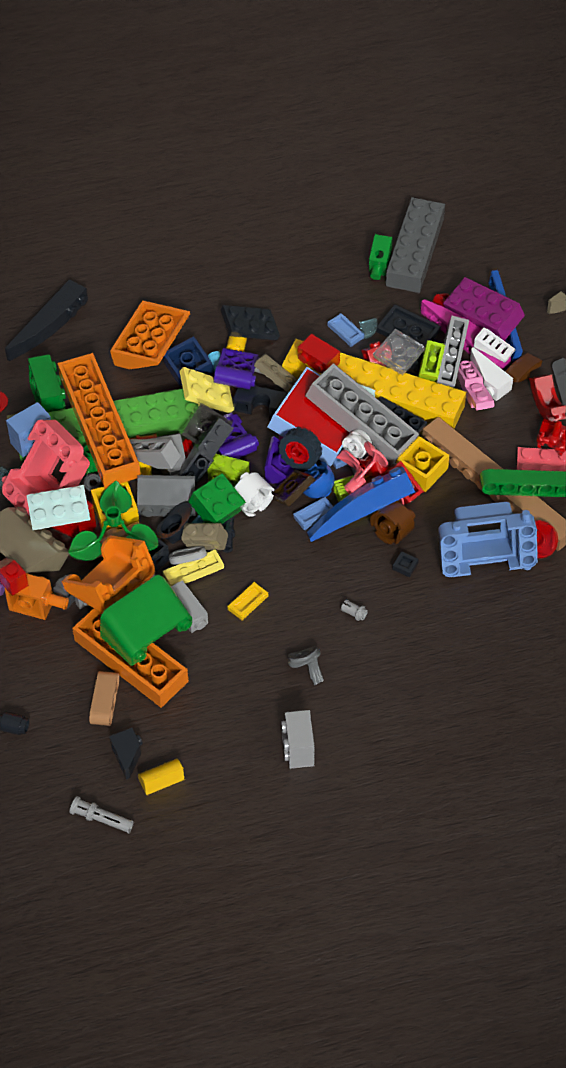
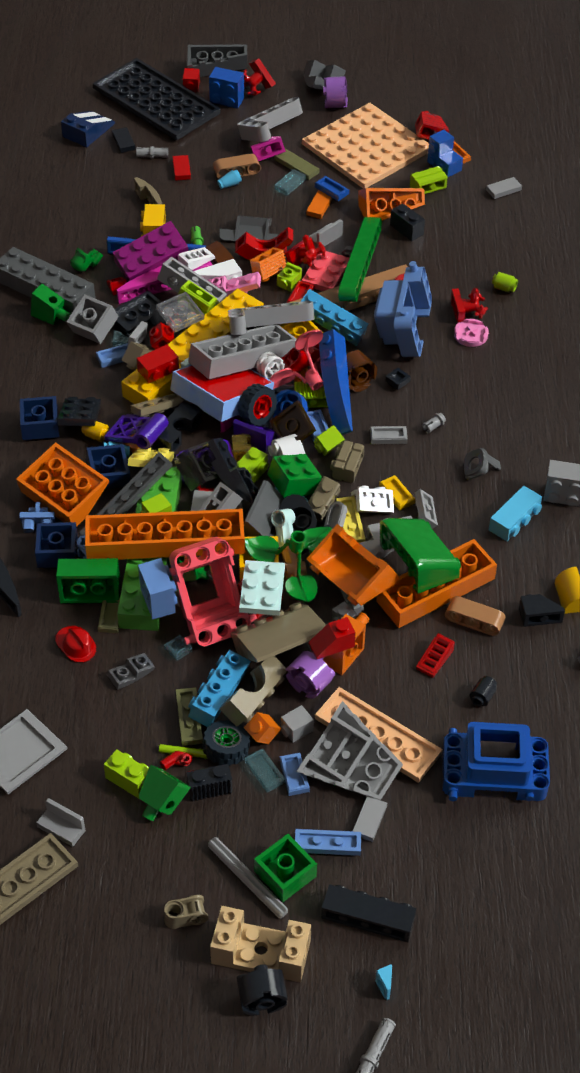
camera: 75 degrees left, 5 degrees down
(52, 684) = (441, 644): none -> red slope
(83, 345) = (55, 542): none -> dark blue brick
(111, 330) = (36, 515): none -> medium blue hips
(131, 407) = (156, 504): none -> lime brick
(148, 384) = (136, 486): none -> dark grey tile
(159, 511) = (283, 528): none -> light aqua piece
(222, 579) = (374, 500): none -> white bracket
(229, 627) = (426, 507): none -> light grey plate
(231, 291) = (39, 418): none -> dark blue brick
(250, 706) = (515, 513): none -> medium azure brick
(255, 456) = (240, 445): none -> clear yellow brick
(269, 548) = (347, 462): none -> dark tan brick
(287, 523) = (328, 440): none -> lime brick
(324, 576) = (388, 435): none -> light grey tile
(346, 343) = (133, 352): none -> dark tan slope
(367, 335) = (138, 334): none -> light grey tile
(374, 294) = (92, 319): none -> light grey brick
(418, 415) = (269, 315): none -> light grey beam
(458, 479) = (334, 317): none -> dark azure brick
(461, 263) = (82, 261): none -> green piece
(500, 452) = (300, 290): none -> red tile
(508, 616) = (471, 333): none -> bright pink tile
(515, 434) = (289, 277): none -> lime brick
(521, 410) = (268, 263): none -> orange brick
(533, 299) = (152, 217): none -> yellow brick
(537, 344) = (196, 236): none -> bright green pin
(543, 597) = (461, 305): none -> red piece

